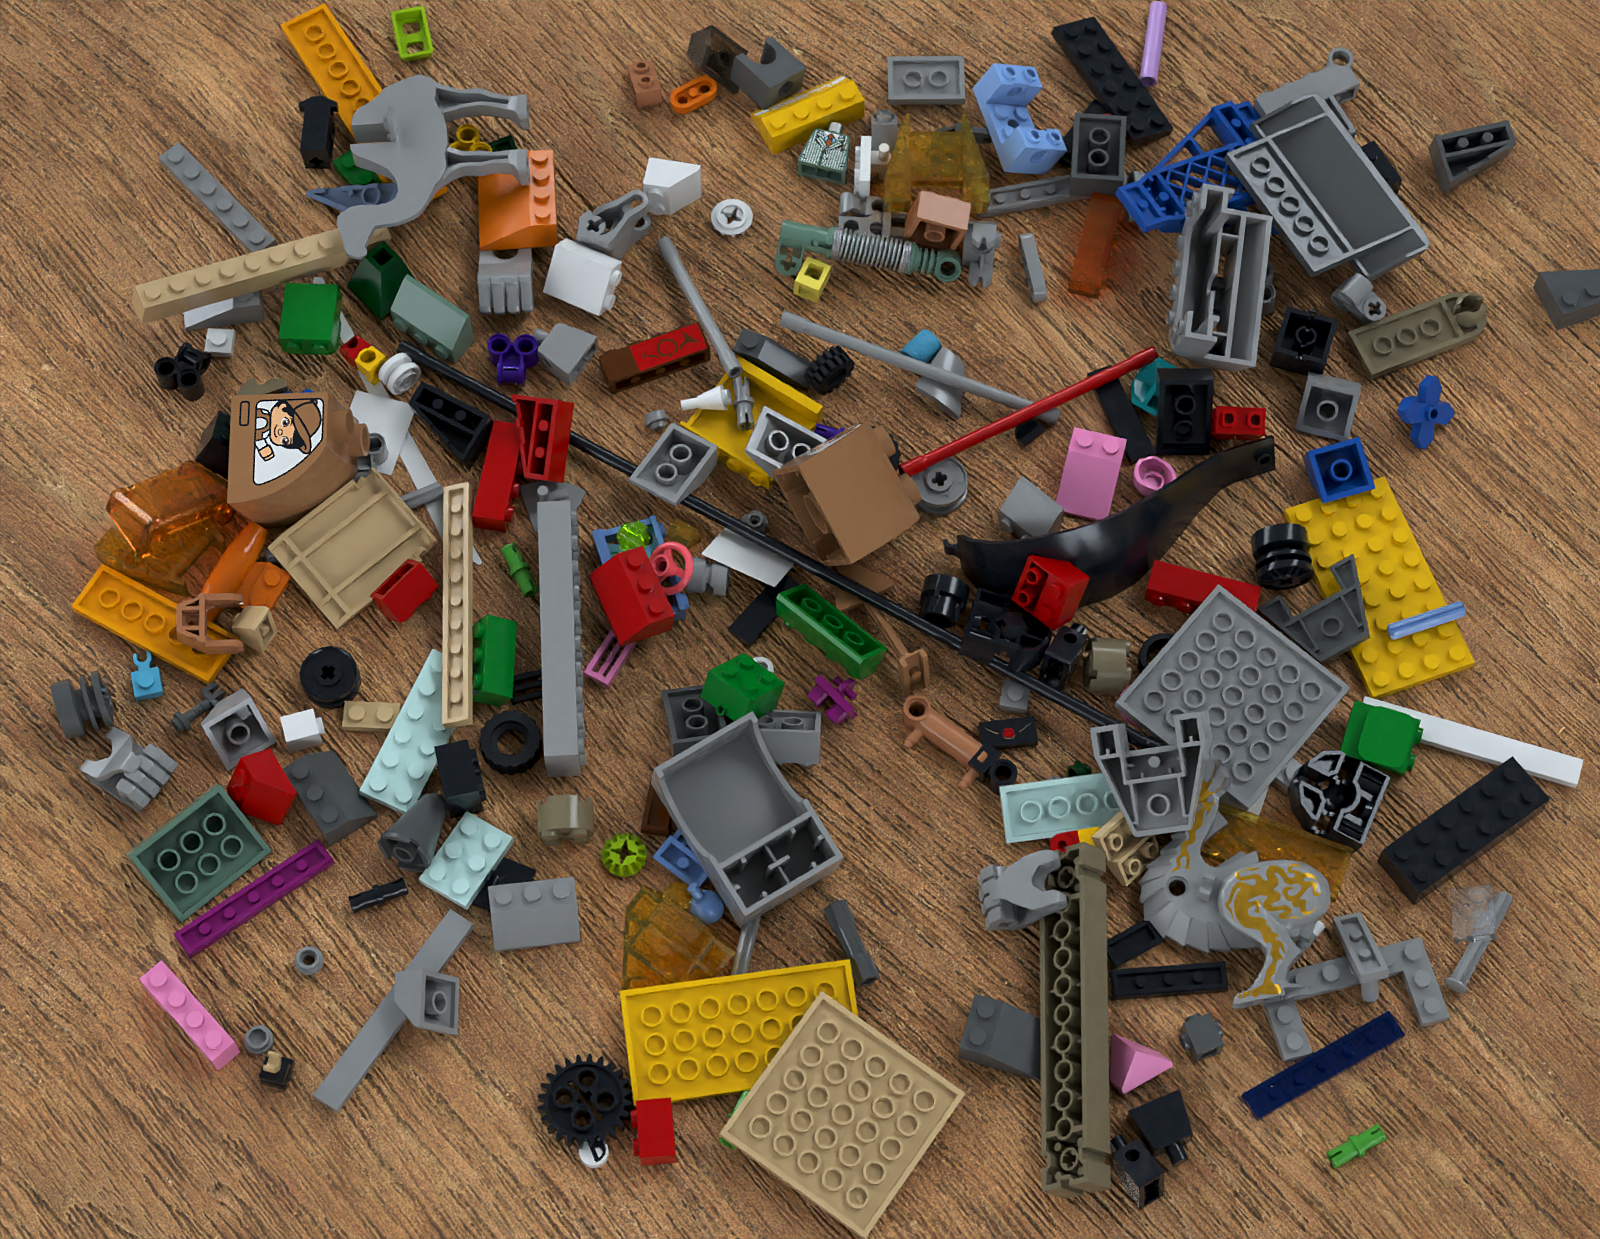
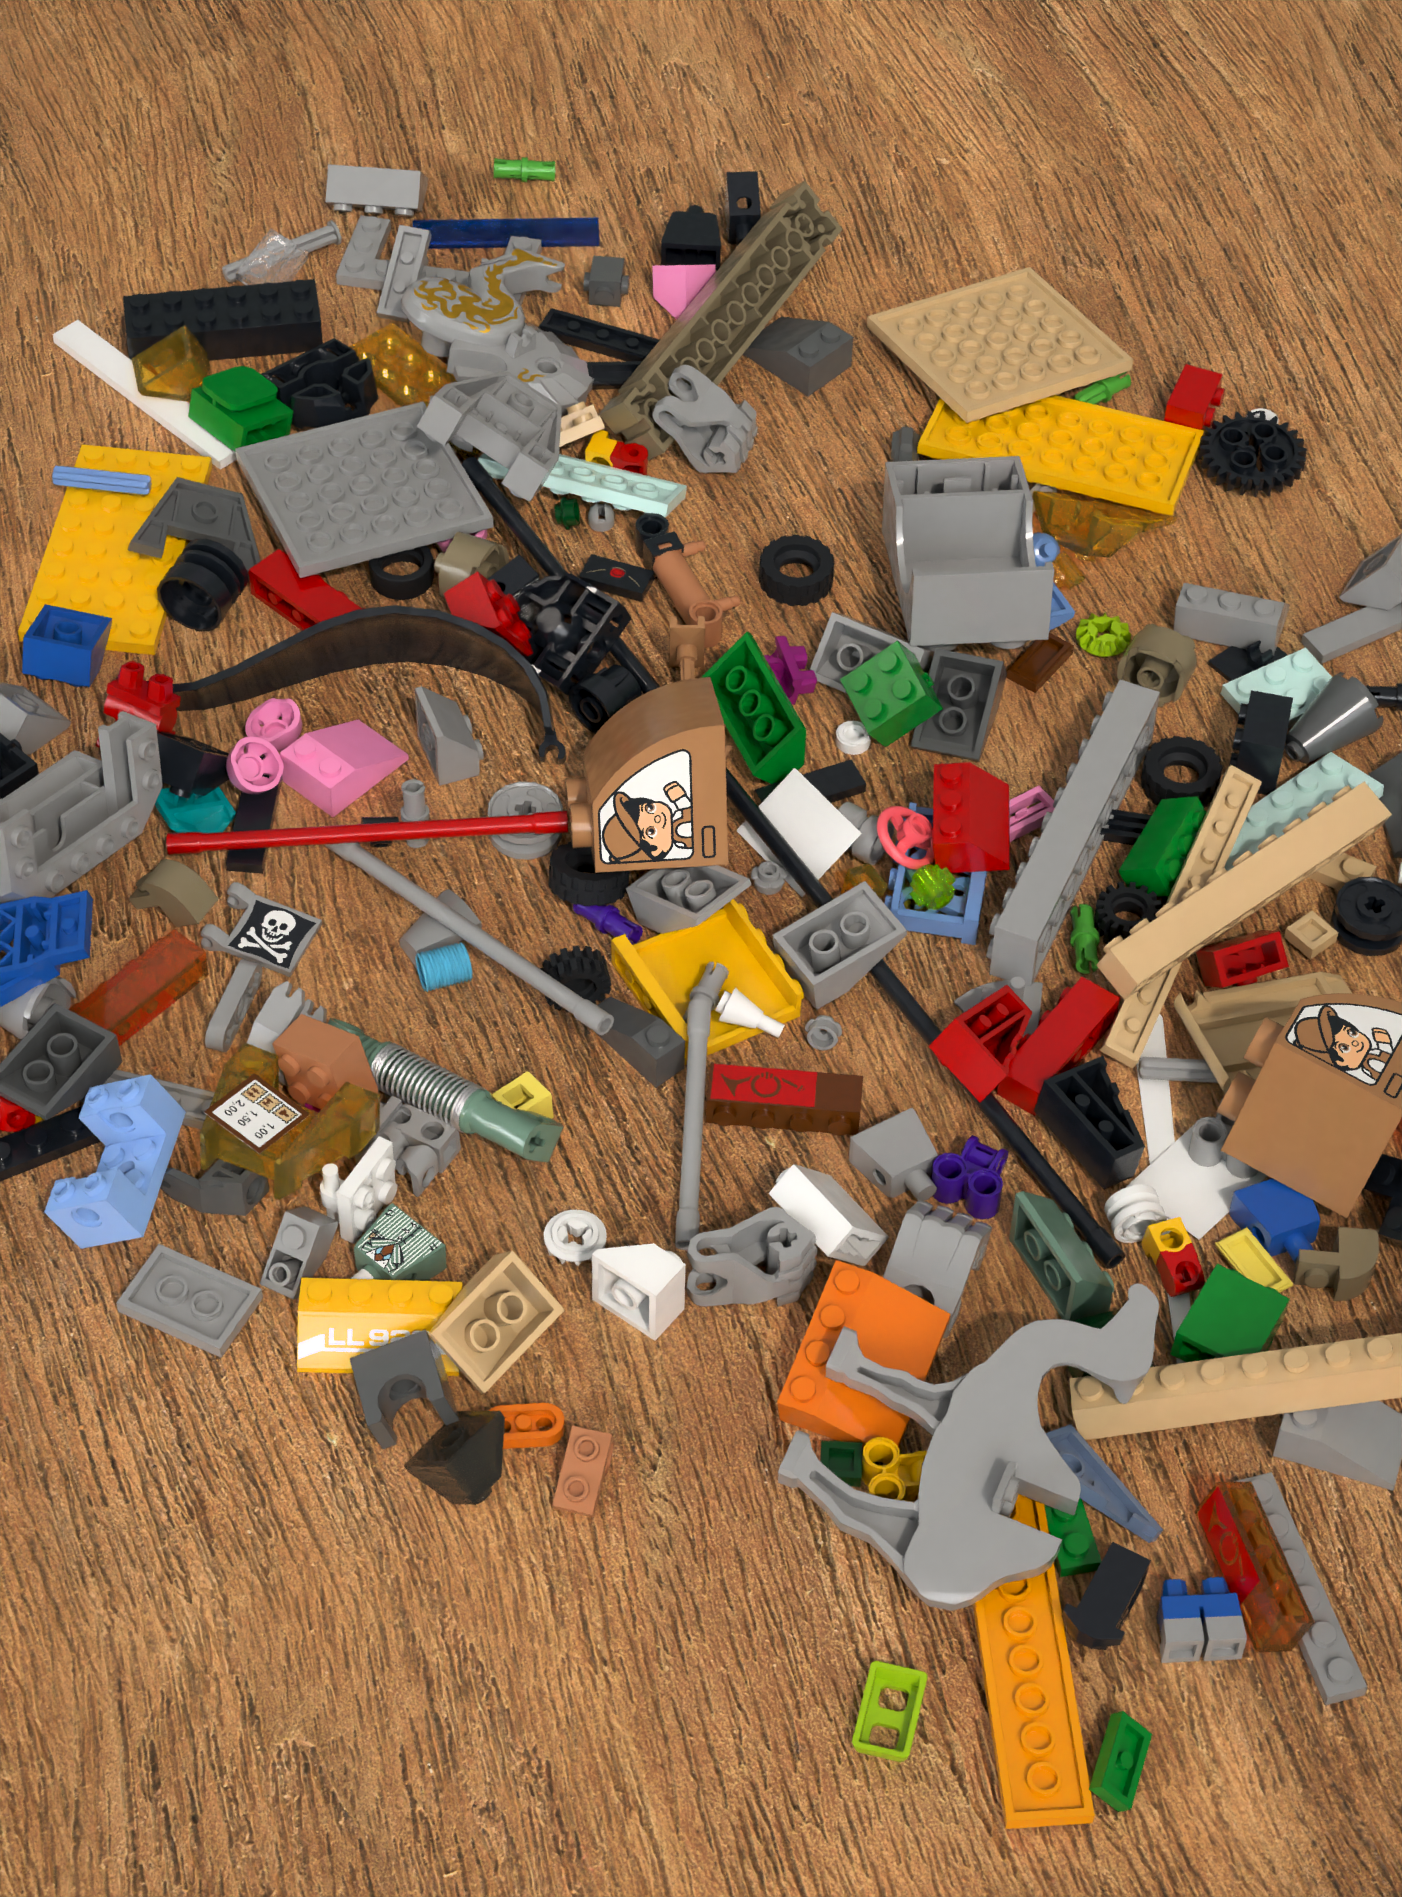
camera: 155 degrees left, 15 degrees down
(243, 185) = (1254, 1566): none -> clear orange brick
(264, 149) = (1200, 1623): none -> hips
(277, 59) = (1120, 1761): none -> green plate
(310, 378) = (1252, 1260): none -> light yellow tile
(367, 645) = (1311, 934): none -> tan plate
(417, 632) = (1242, 890): none -> tan brick
(494, 587) = (1123, 900): none -> black tyre
(740, 127) = (495, 1319): none -> tan slope
(879, 821) = (796, 589): none -> black tyre
(944, 147) = (256, 1113): none -> sticker
(1008, 439) = (414, 807): none -> light grey pin
(1050, 332) = (265, 932): none -> flag
(1122, 315) = (176, 891): none -> dark tan brick
(1135, 414) = (247, 768): none -> bright pink helmet
(1458, 1053) = (375, 189): none -> light grey slope
(1460, 756) = (172, 367): none -> clear yellow slope

